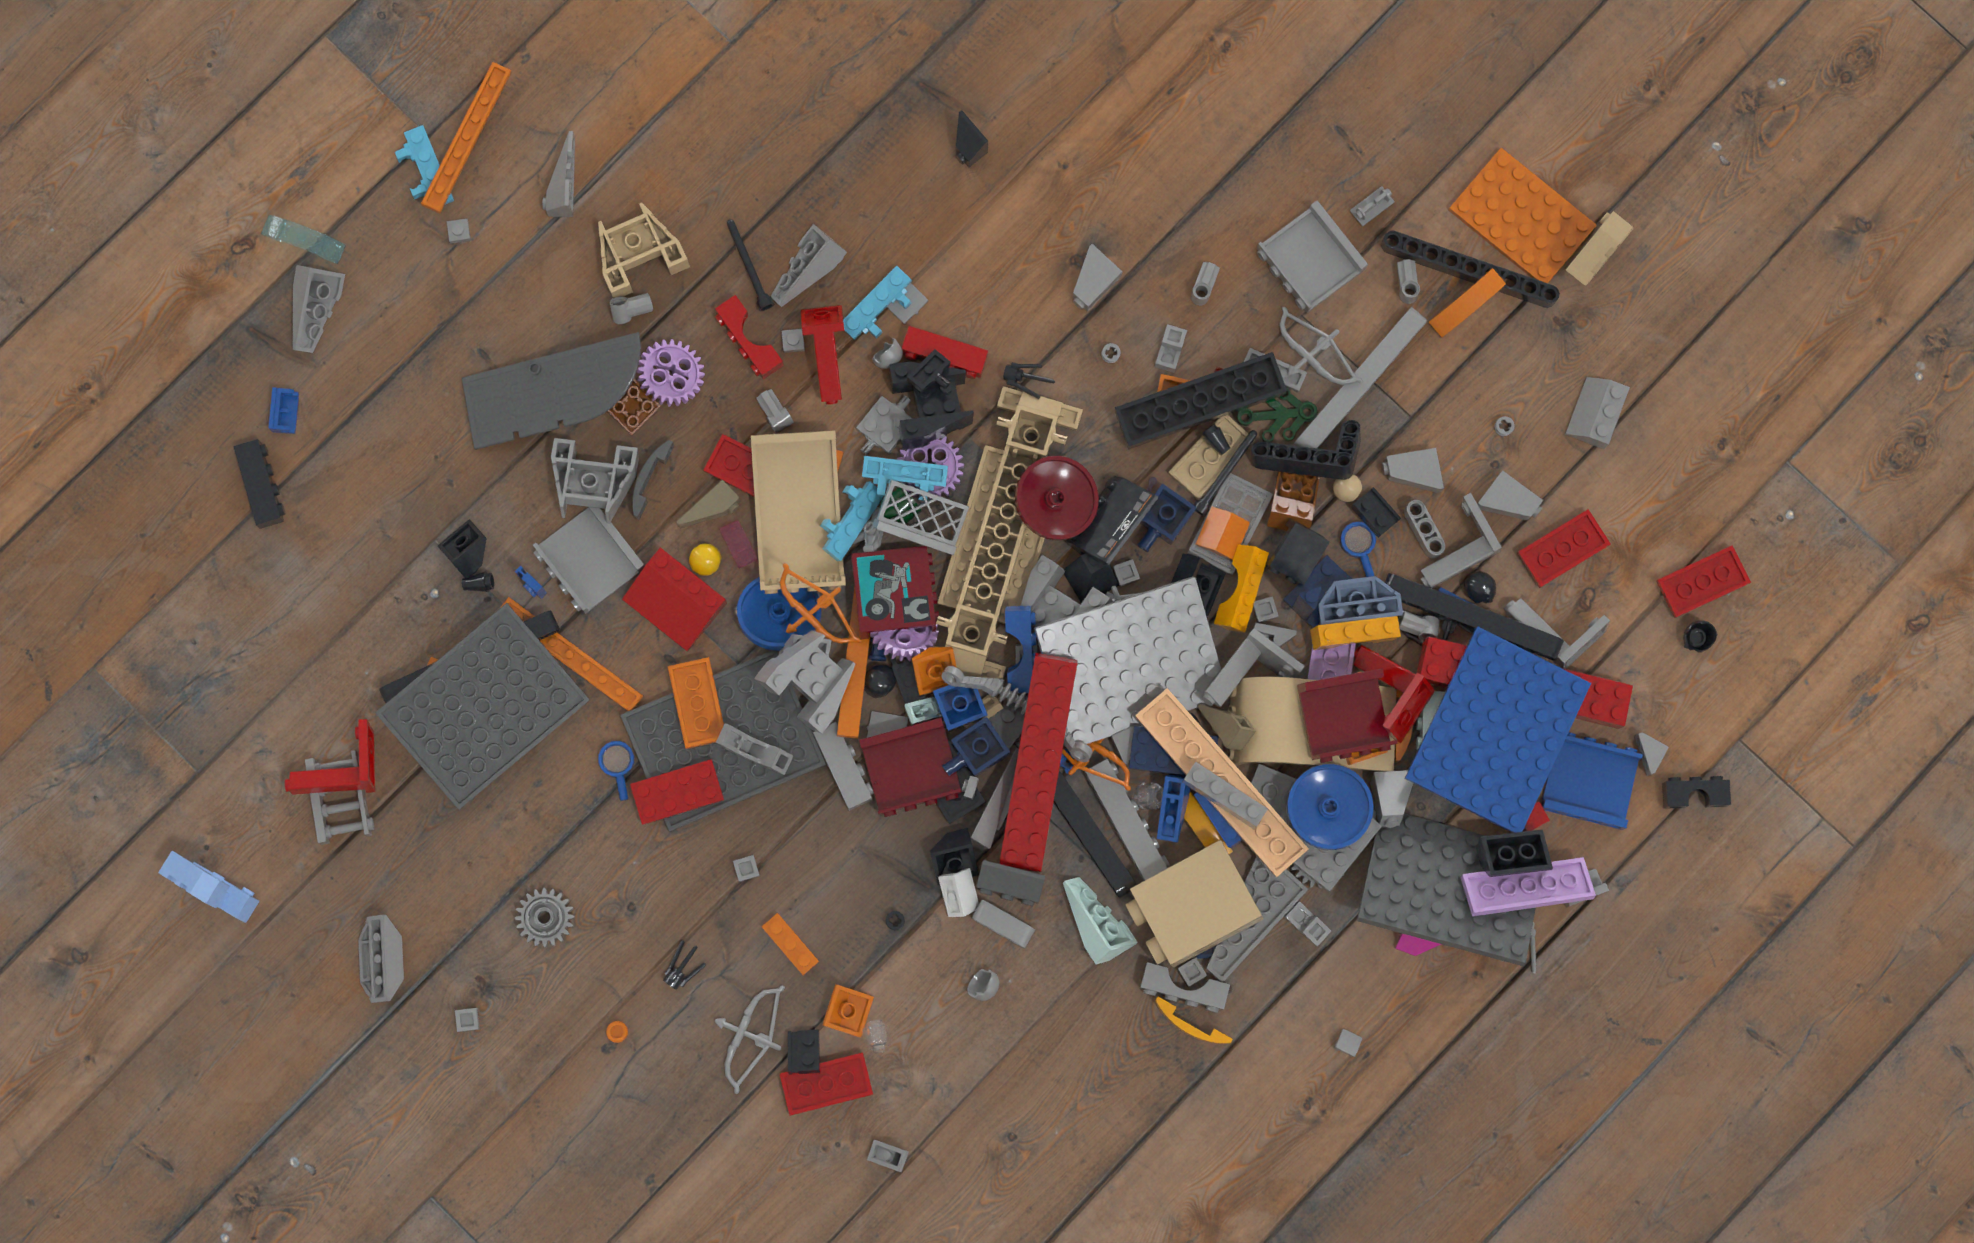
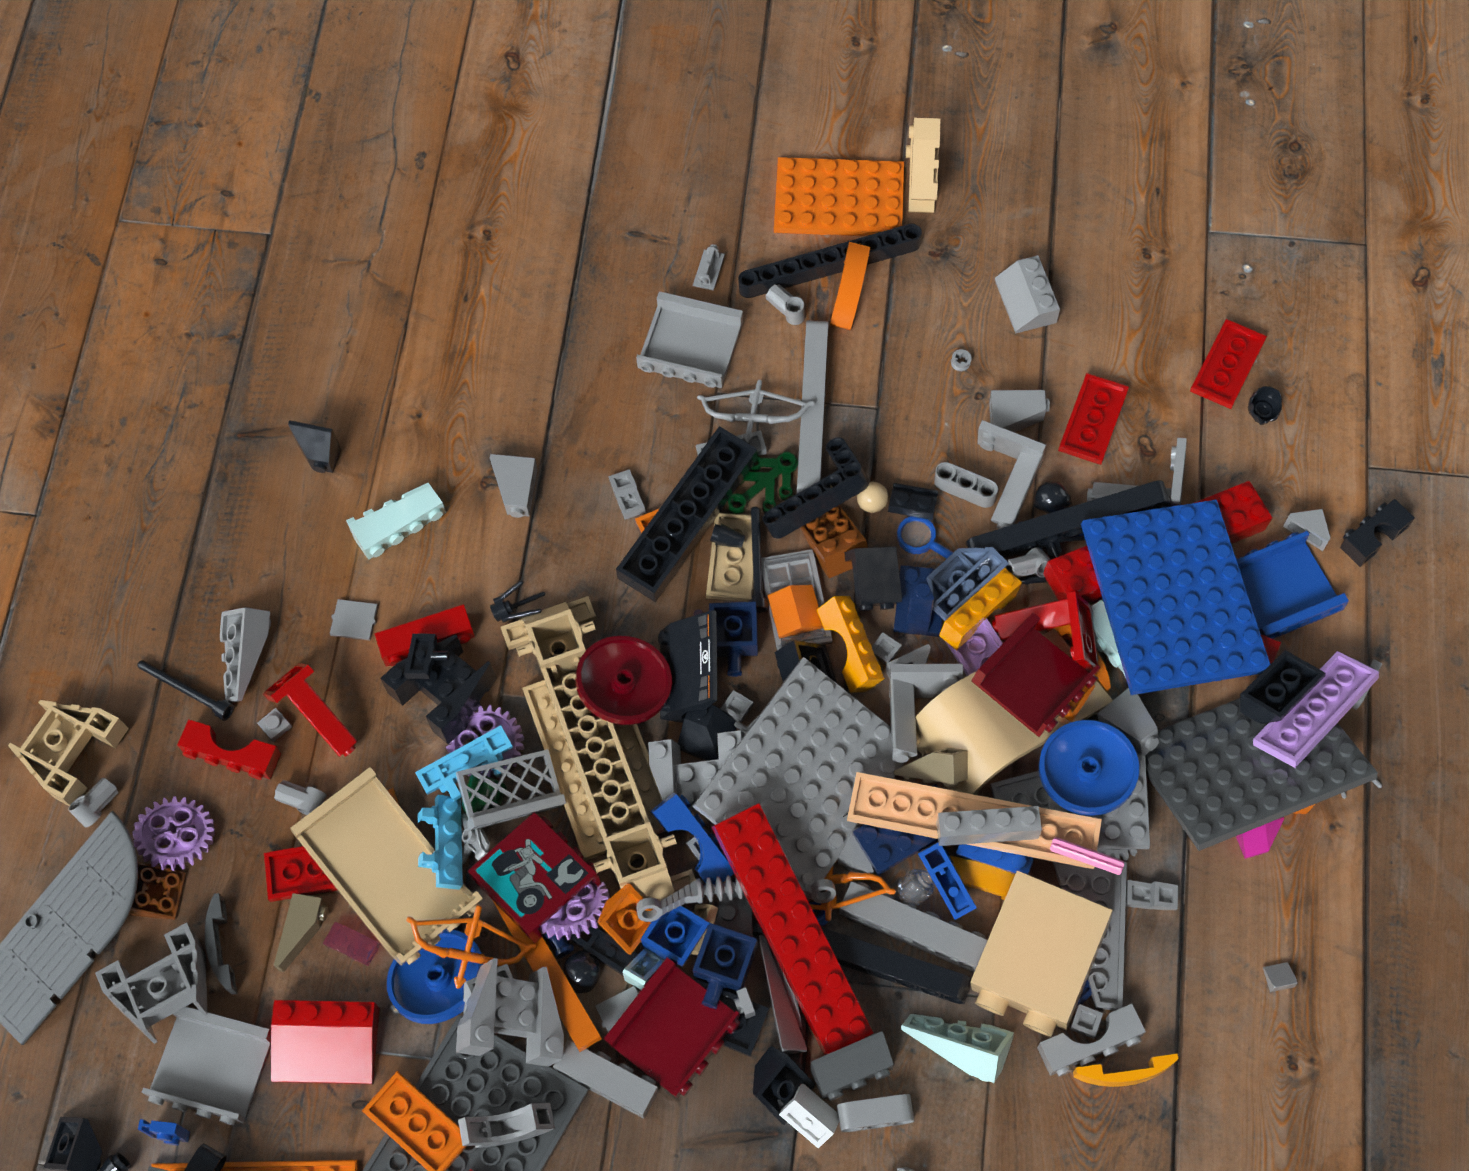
camera: 30 degrees left, 15 degrees down
(705, 559) = (328, 982): yellow hair -> none
(882, 425) = (413, 738): light grey plate -> none
(887, 291) = (326, 654): medium azure hinge -> none
(889, 355) = (374, 671): light grey hair -> none
(987, 246) = (396, 520): none -> light aqua wedge
(1114, 358) = (580, 528): light grey bush -> none
(1204, 282) = (615, 422): light grey piece -> none
(1276, 866) = (1087, 855): none -> bright pink axle
(1415, 469) = (918, 443): light grey slope -> none

